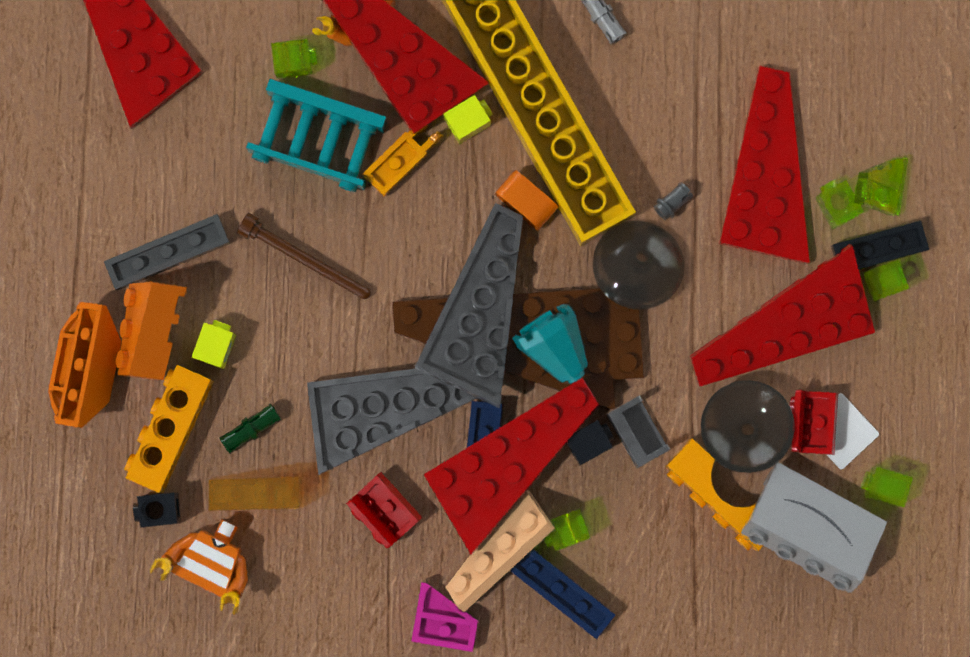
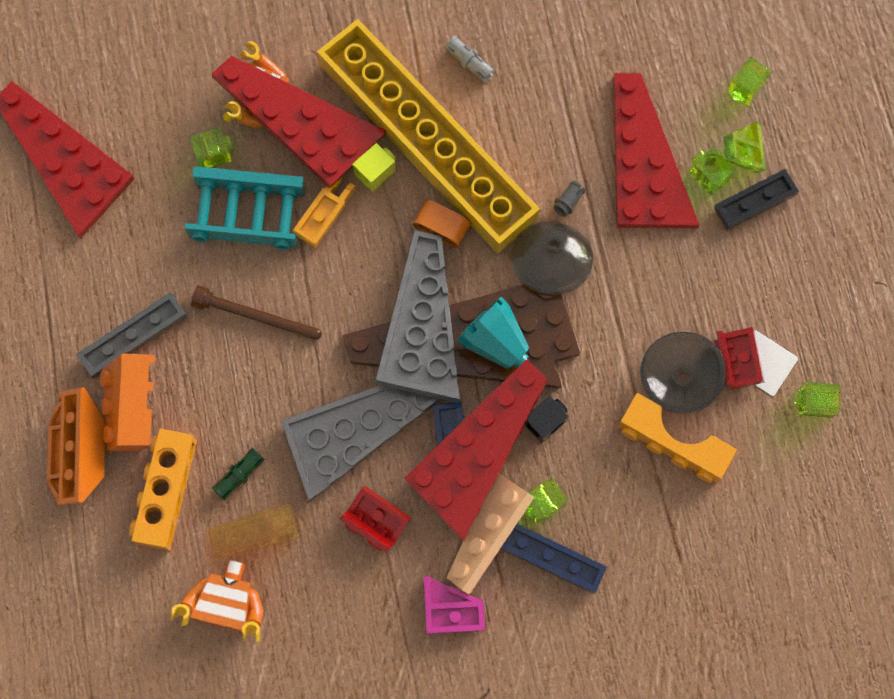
camera: 15 degrees left, 10 degrees down
(171, 507) = (180, 565): black brick -> none
(214, 344) = (190, 406): neon yellow brick -> none
(637, 432) = (585, 401): flat silver panel -> none
(801, 319) = (708, 270): red wing -> none
(814, 528) = (766, 447): light grey panel -> none
(886, 280) = (769, 224): clear neon green brick -> none
(907, 109) = (749, 81): none -> clear neon green brick

